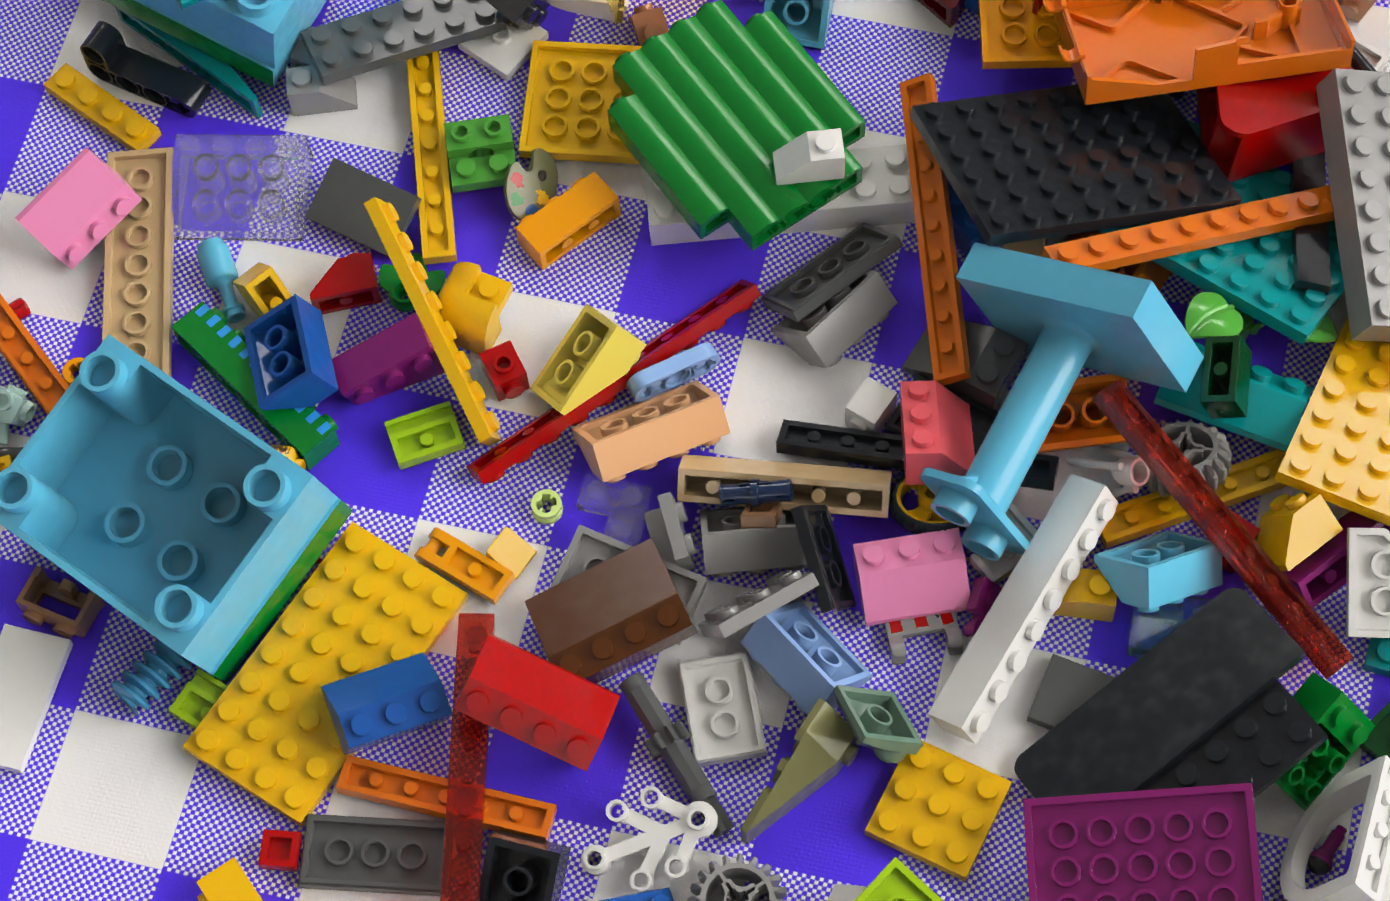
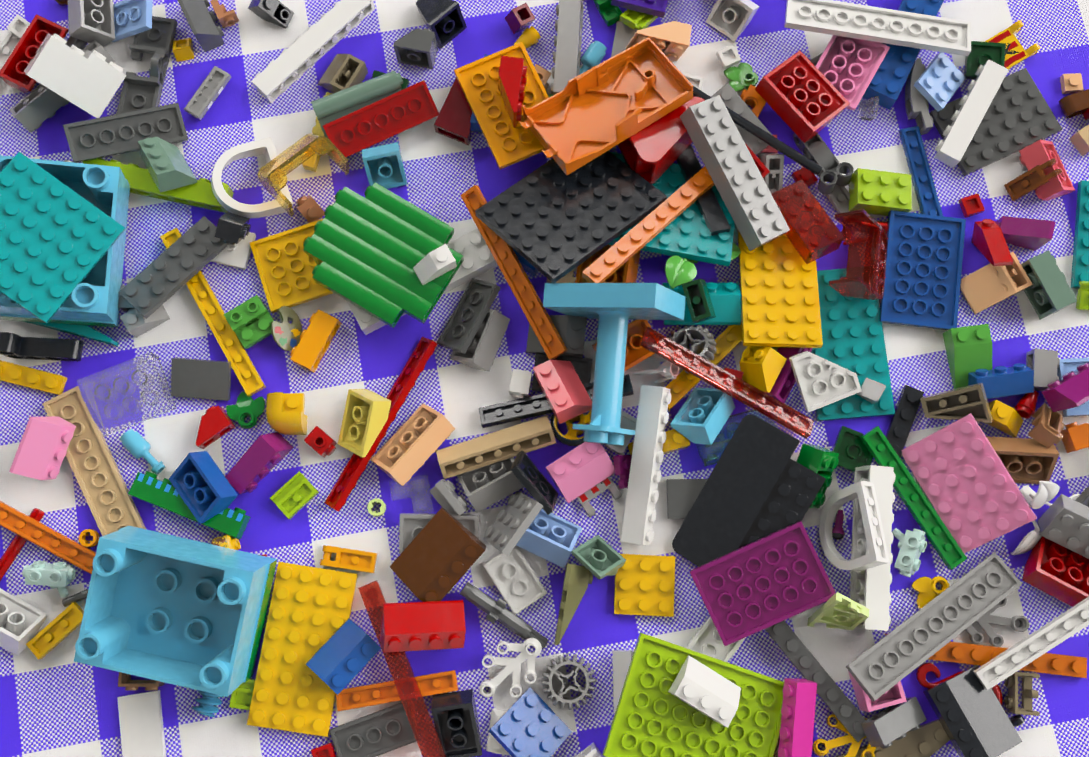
camera: 30 degrees left, 15 degrees up
(261, 288) = (169, 450): yellow slope -> none
(438, 331) = (265, 429): yellow plate -> none
(511, 551) = (369, 541): yellow slope -> none
(673, 371) = (410, 406): light blue beam -> none
(756, 492) = (485, 461): dark blue pin -> none
(765, 516) = (492, 471): medium nougat tile -> none

